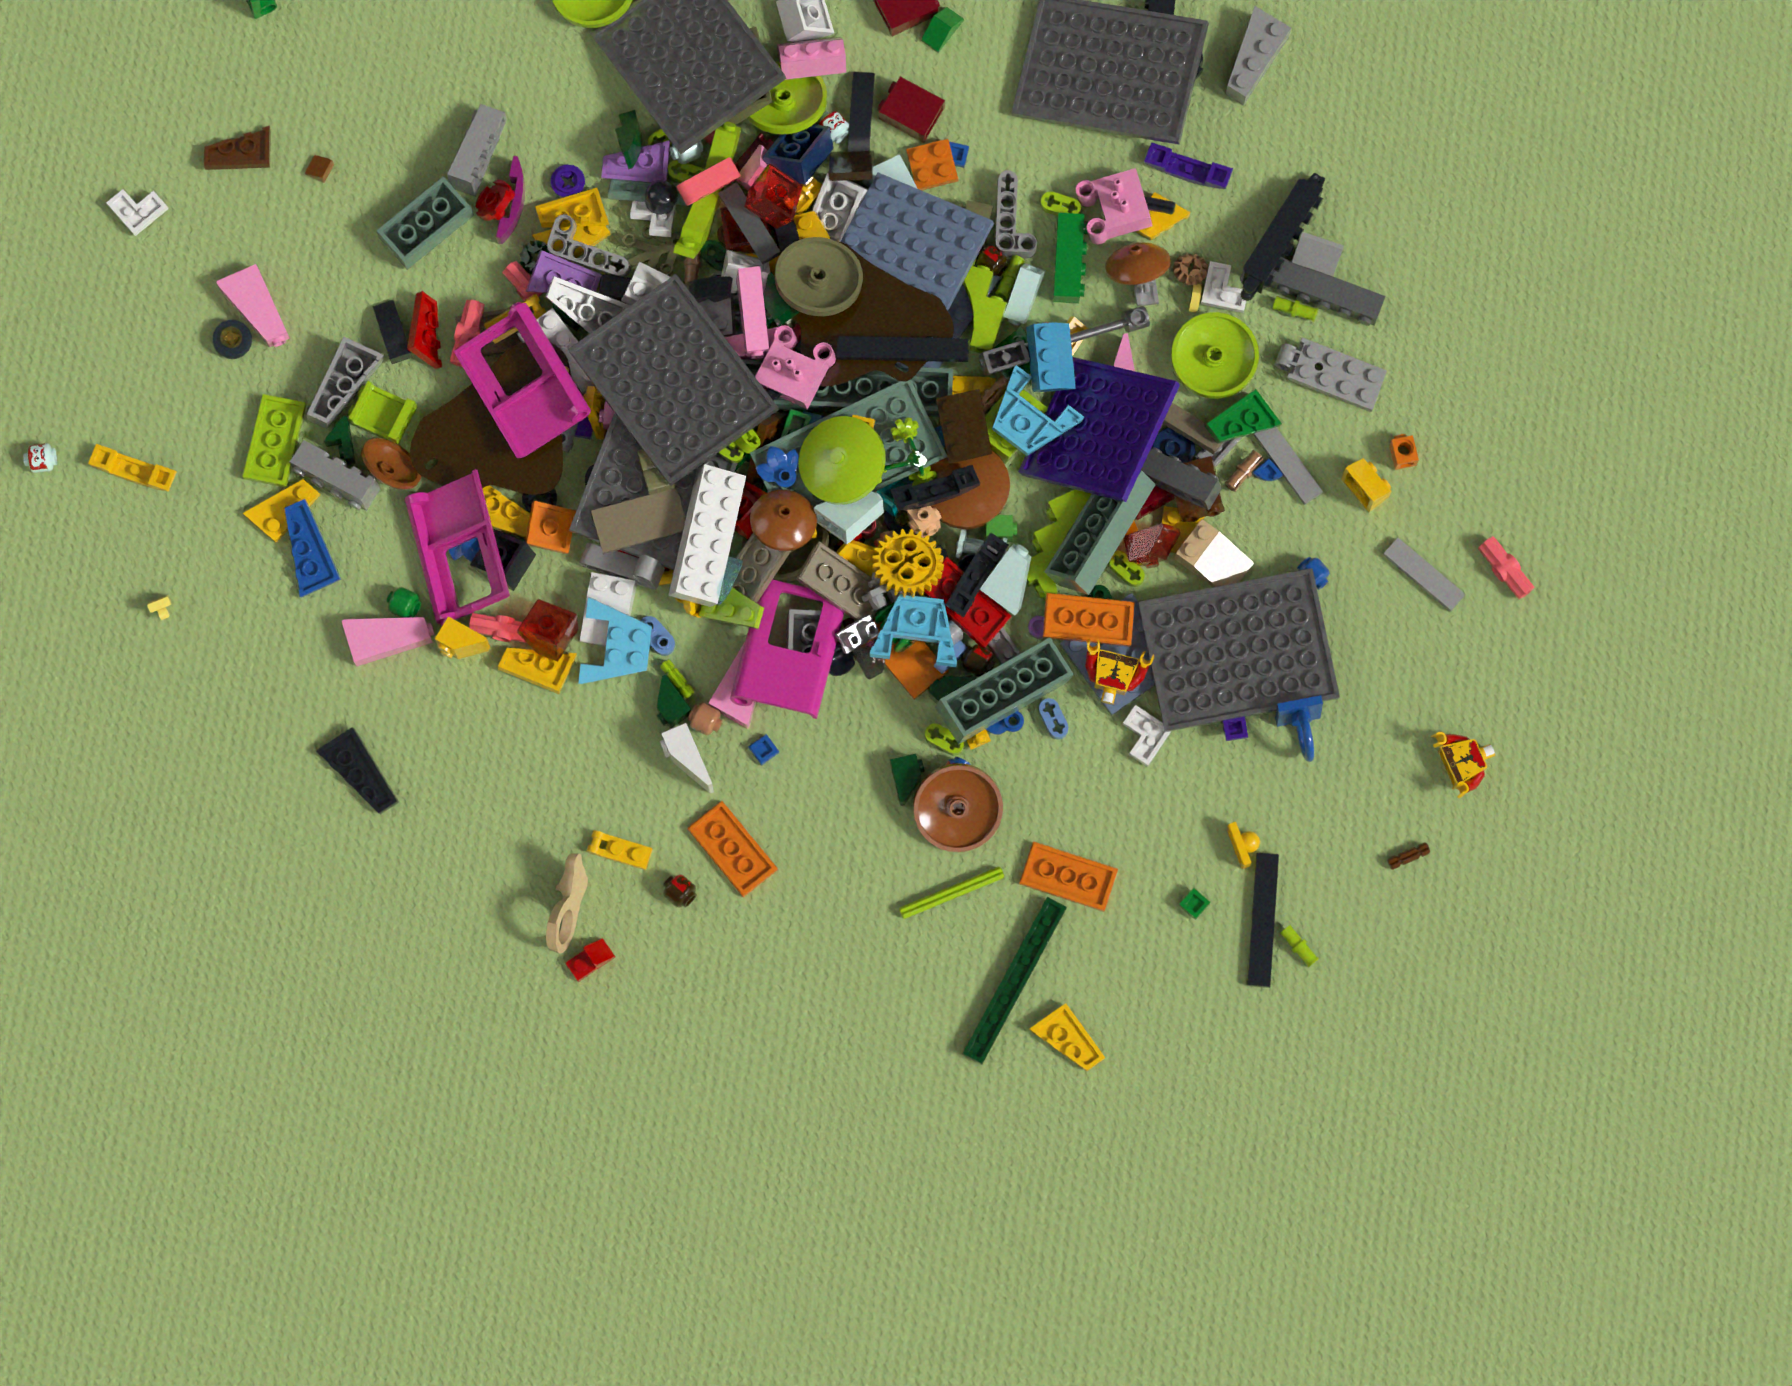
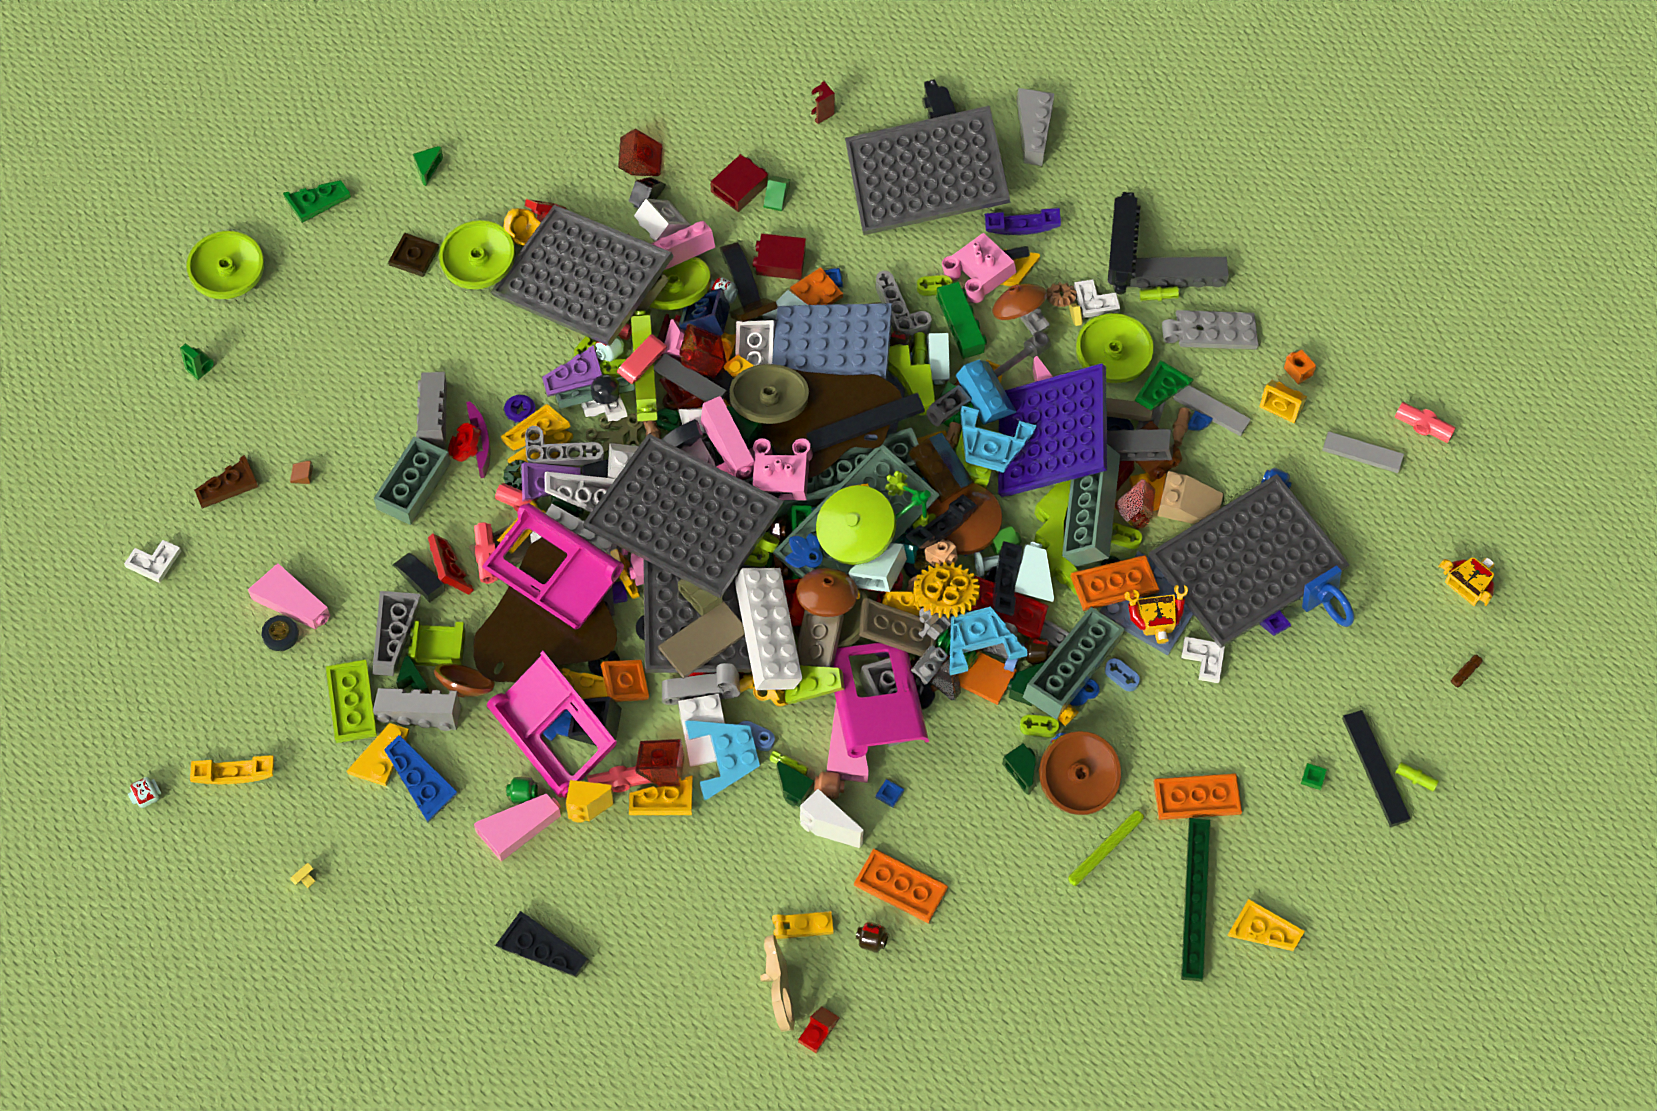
camera: 25 degrees left, 15 degrees down
(629, 137) = (558, 354): dark green slope -> none
(732, 569) = (802, 651): clear light blue slope -> none
(1035, 627) = (1073, 608): medium lavender tile -> none
(1243, 844) = (1328, 713): yellow tile -> none
(1317, 254) = (1158, 242): light grey slope -> none

